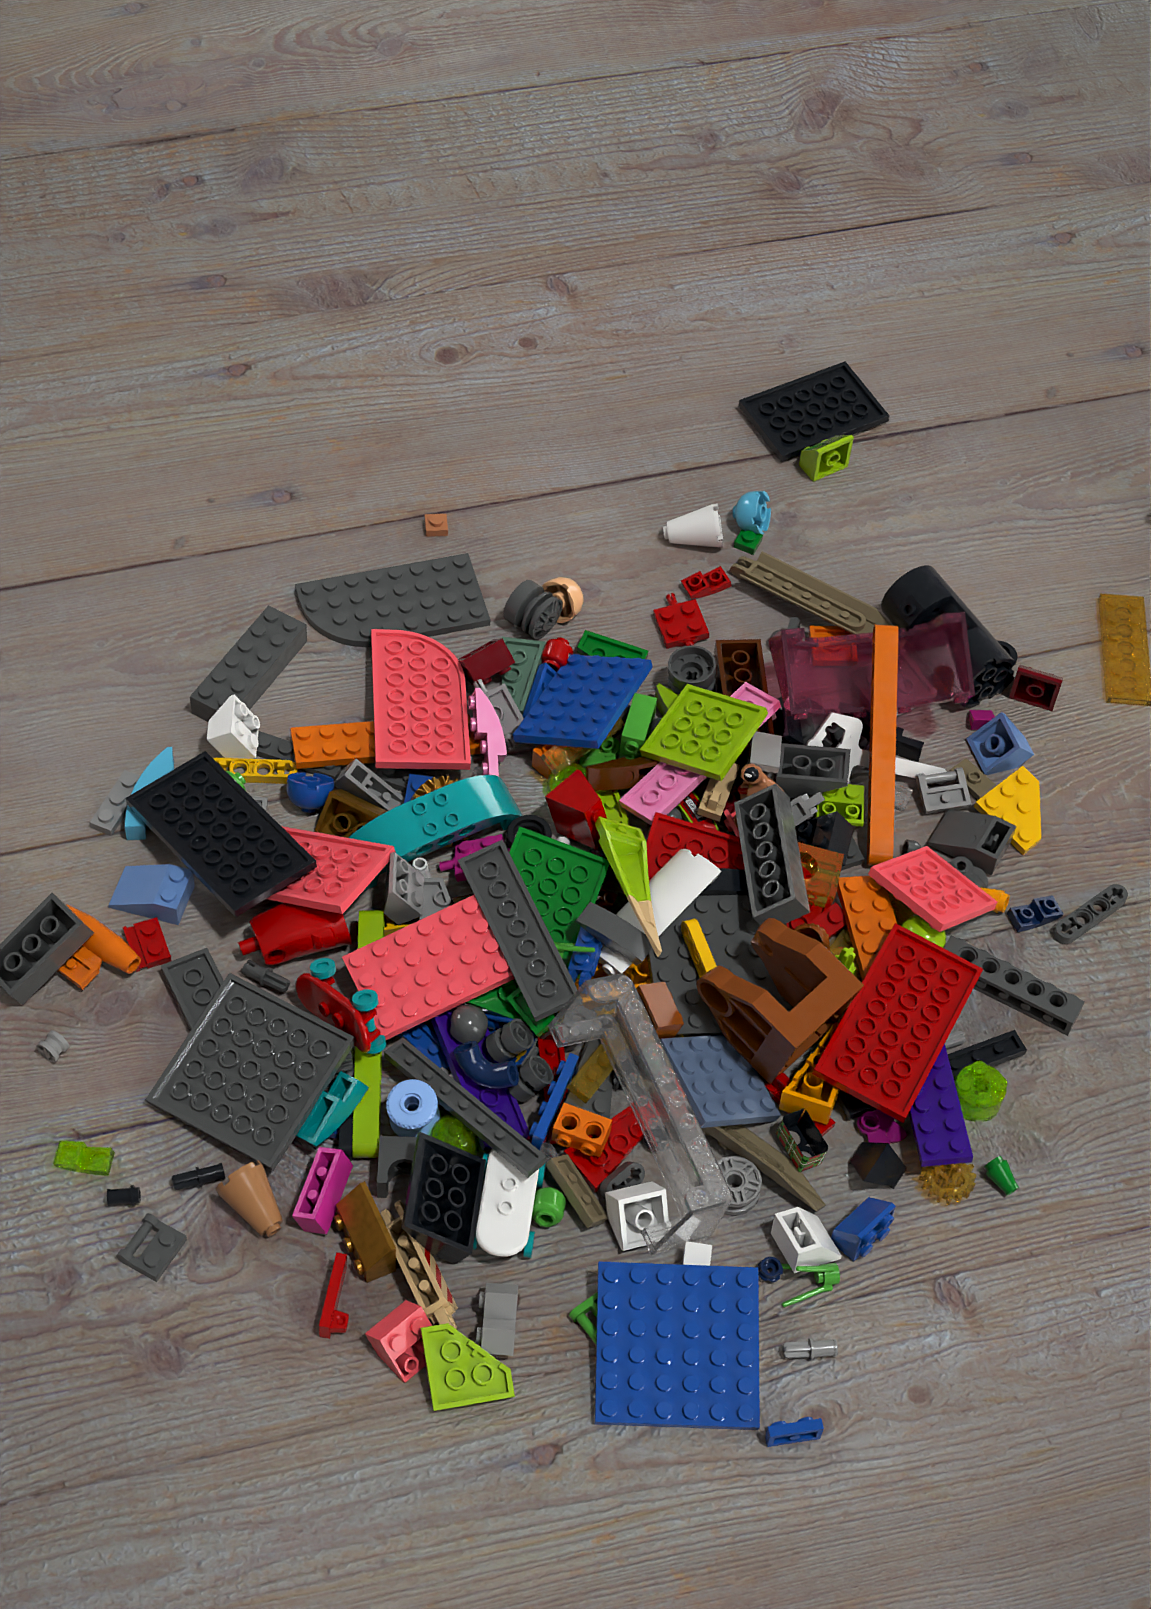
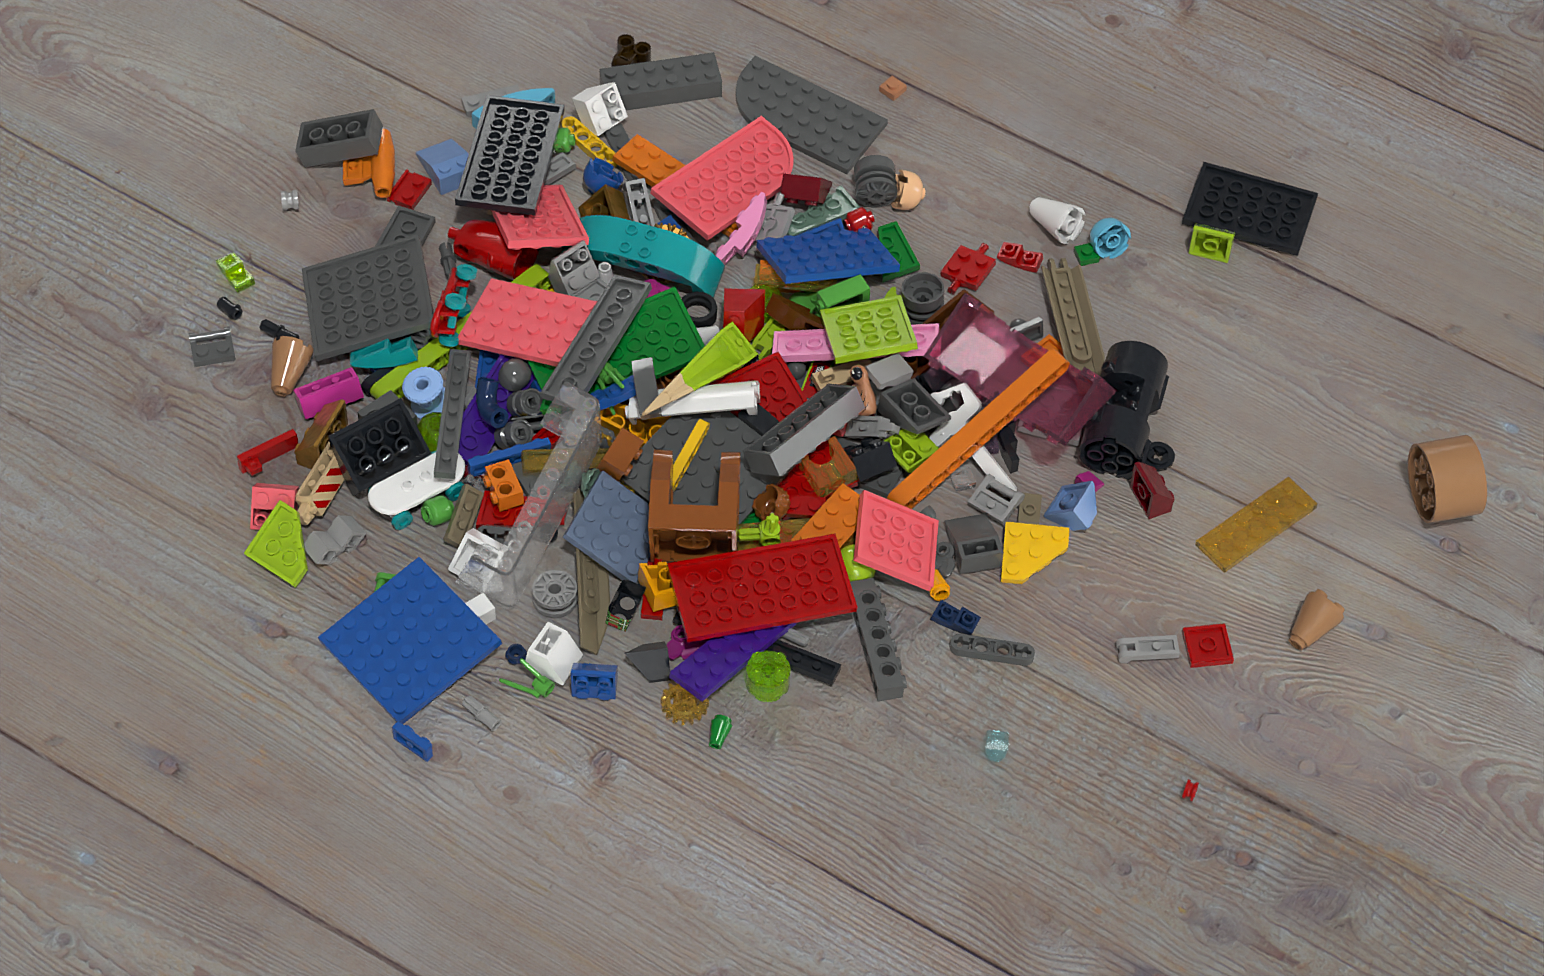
camera: 50 degrees right, 0 degrees up
(191, 664) = (629, 52): none -> dark brown piece

